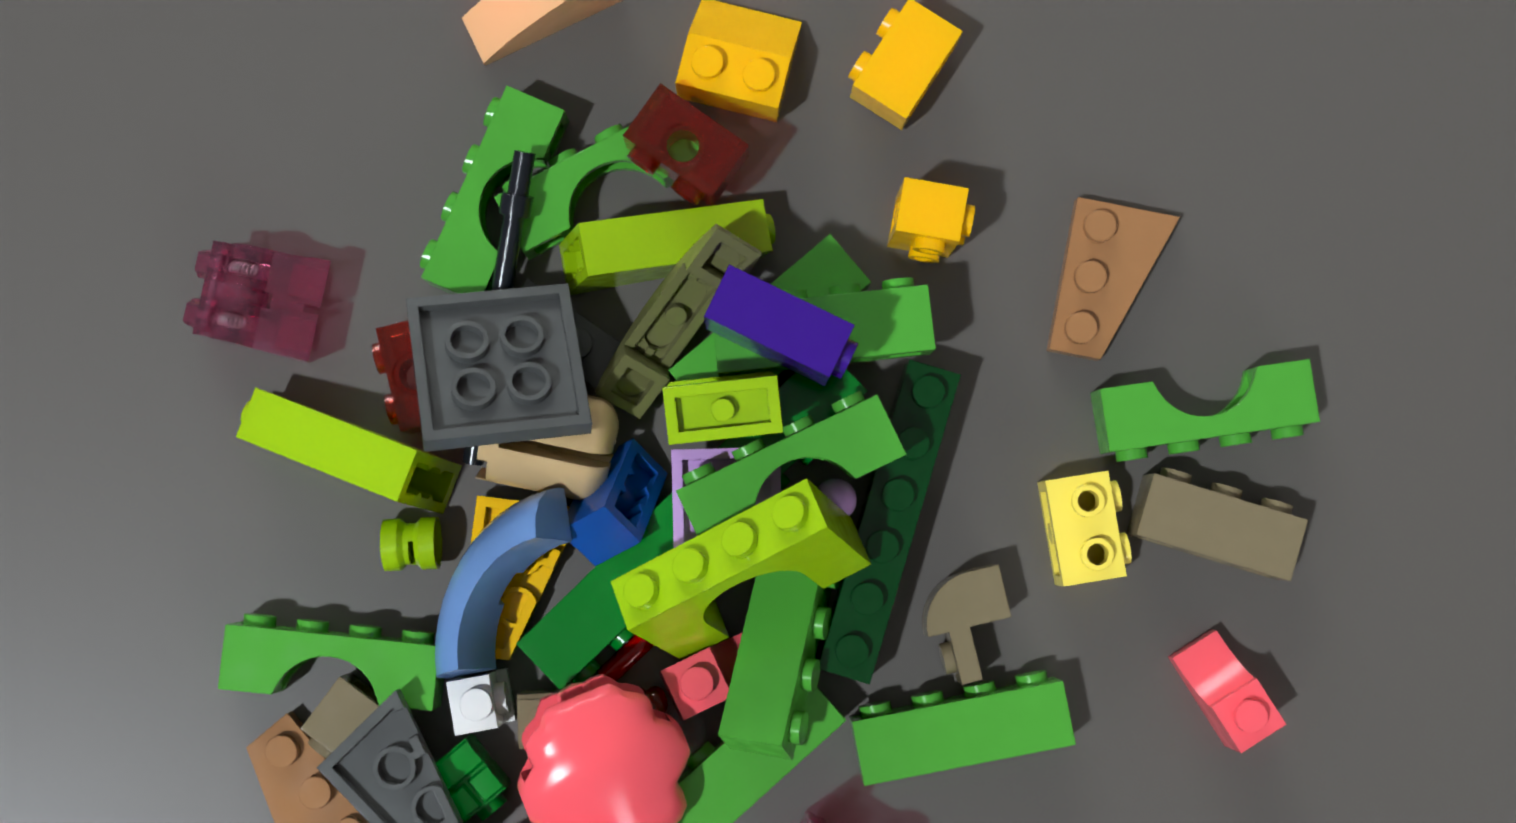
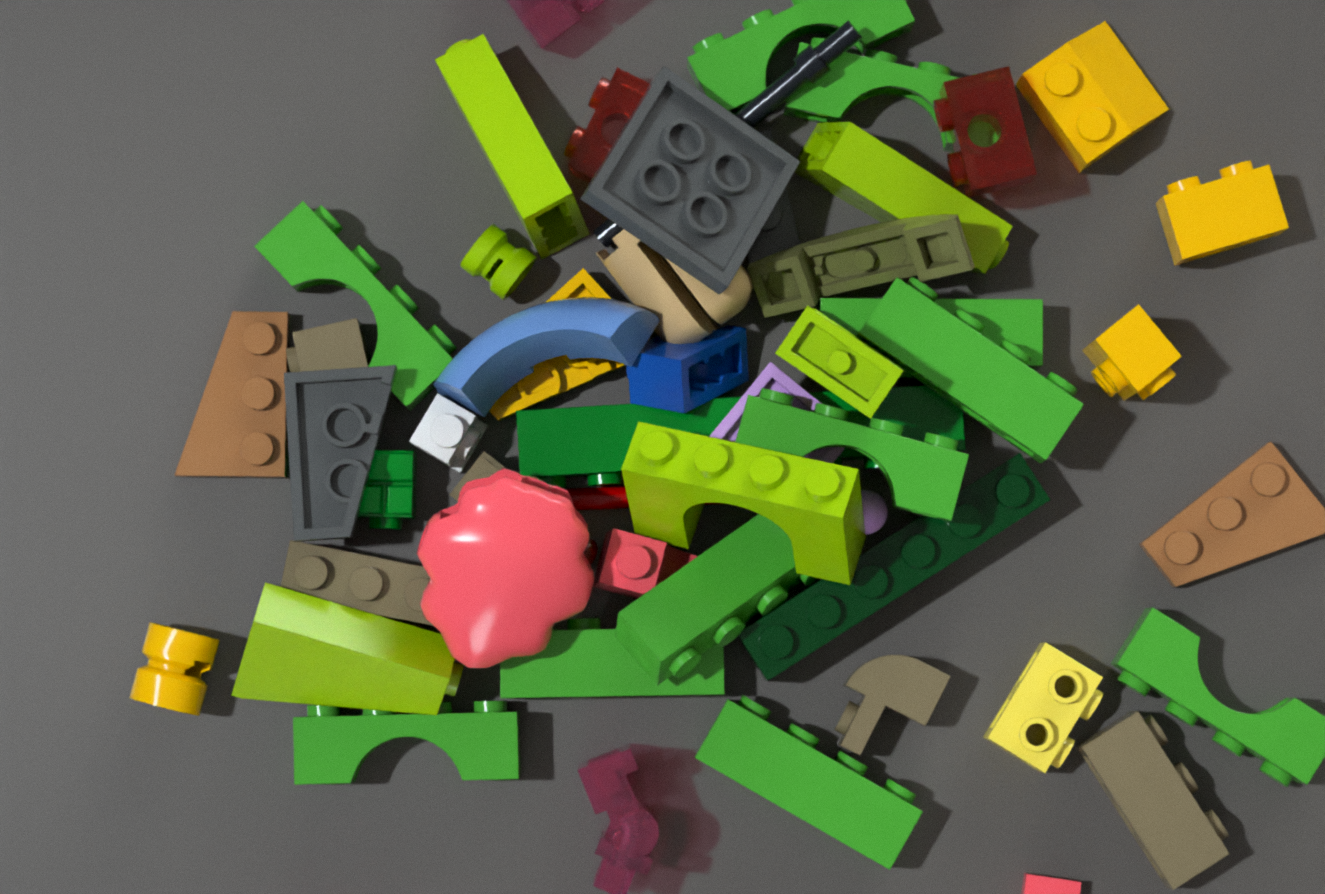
camera: 45 degrees right, 0 degrees up
(780, 326) = (937, 337): dark purple brick -> none

